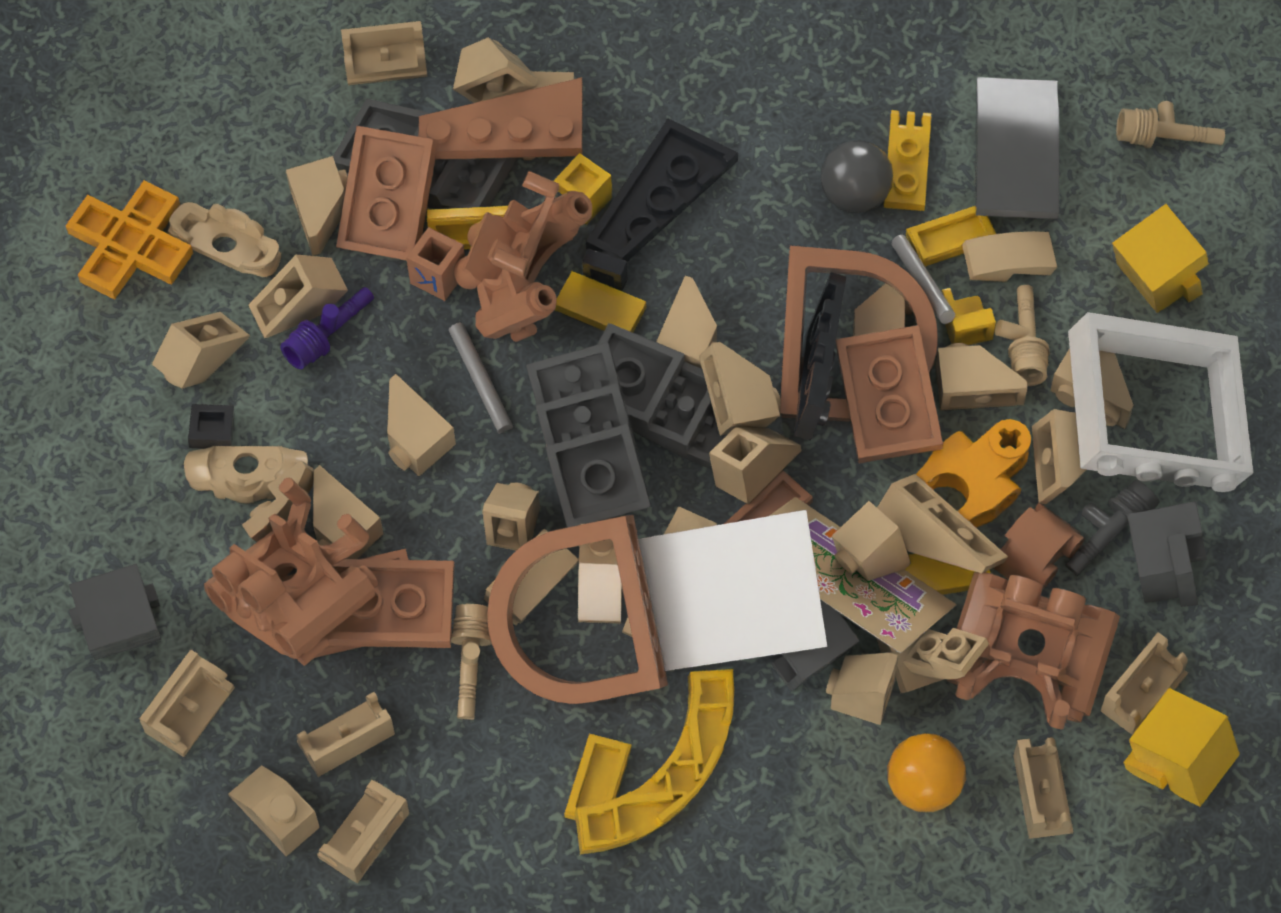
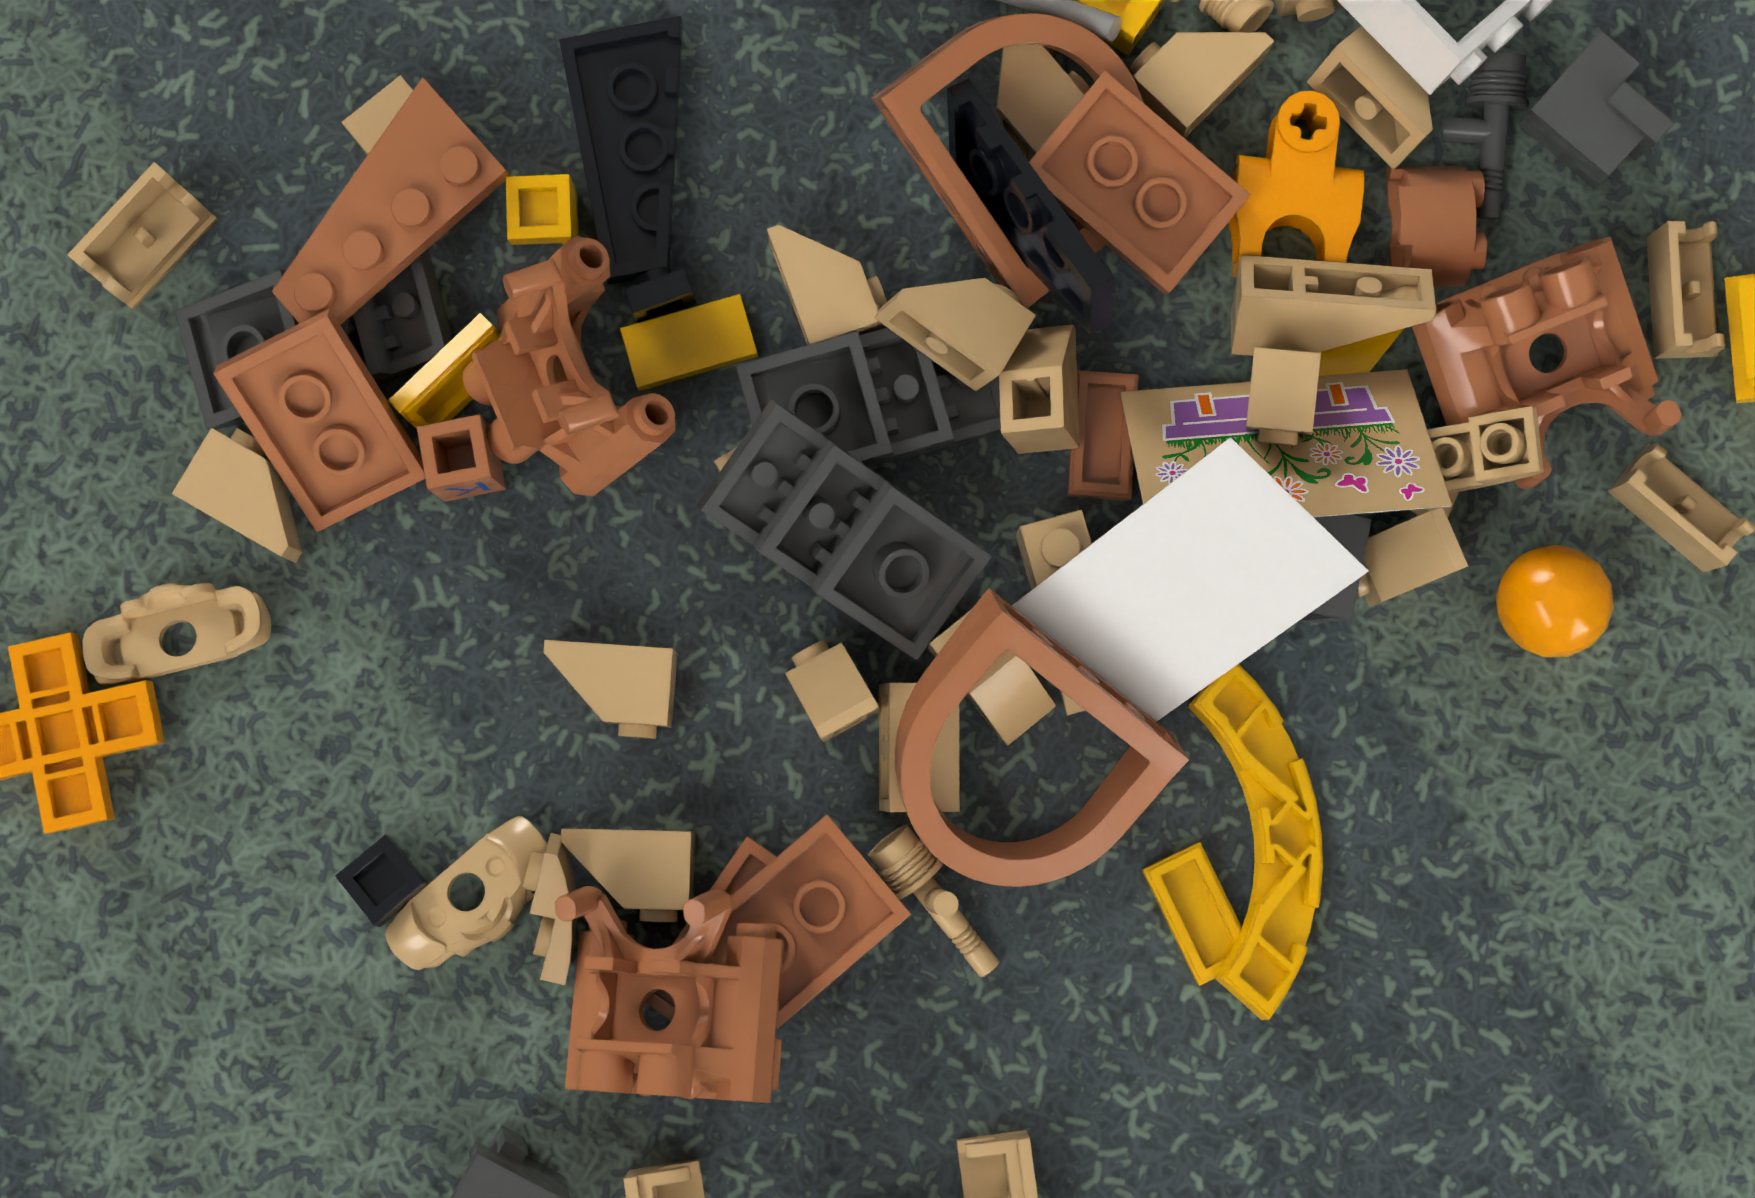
camera: 45 degrees left, 20 degrees up
(197, 348) = (276, 799): tan slope -> none
(297, 294) = (330, 632): tan slope -> none
(311, 341) = (398, 681): dark purple piece -> none
(346, 735) = (877, 1110): tan hinge -> none
(480, 378) = (632, 548): light grey bar -> none
(491, 72) = (300, 156): tan slope -> none

